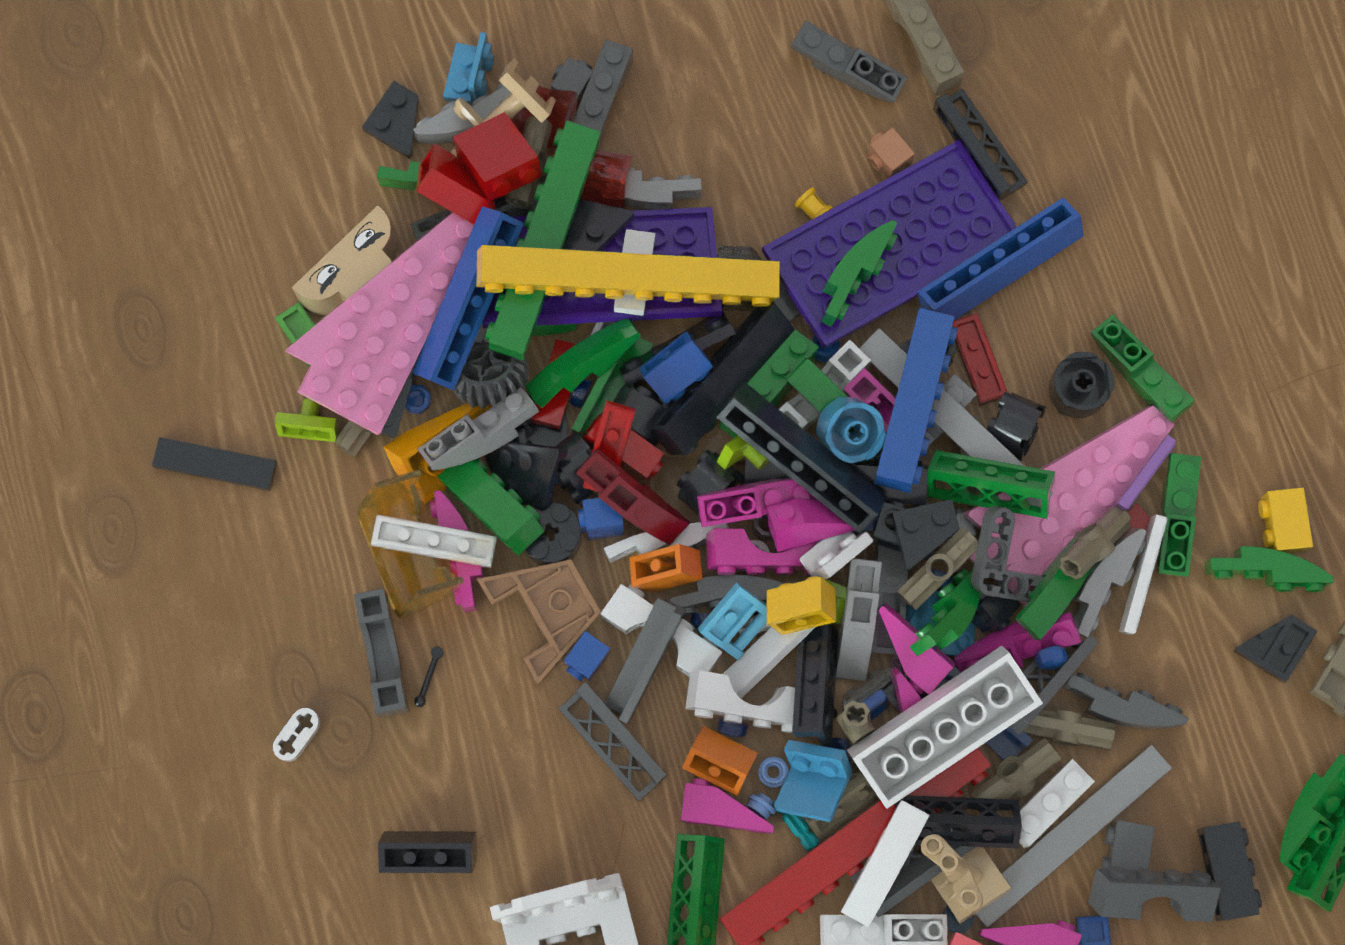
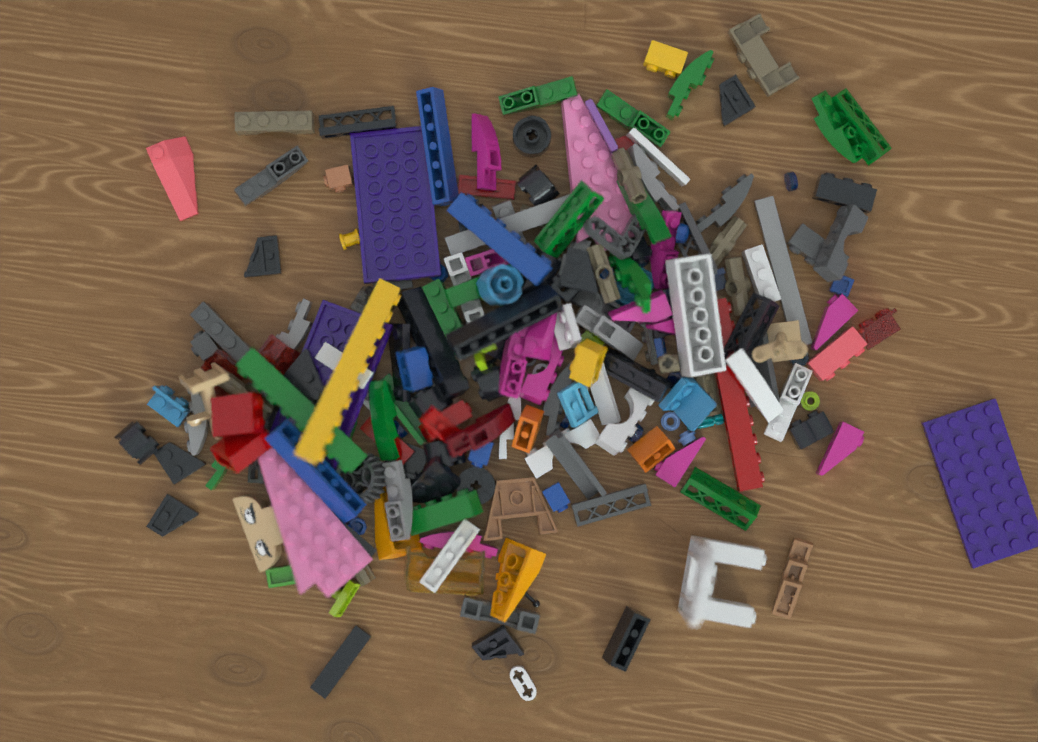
camera: 65 degrees left, 10 degrees up
(316, 142) = (170, 516): none -> black wing
(336, 671) = (497, 644): none -> black wing
(397, 51) = (136, 442): none -> black brick
(455, 651) = (517, 571): none -> light orange wedge
(731, 106) = (265, 258): none -> black wing
(856, 266) = (401, 229): green slope -> none
(1026, 336) = (488, 152): none -> dark pink slope
(1206, 784) = (791, 181): none -> clear blue tile

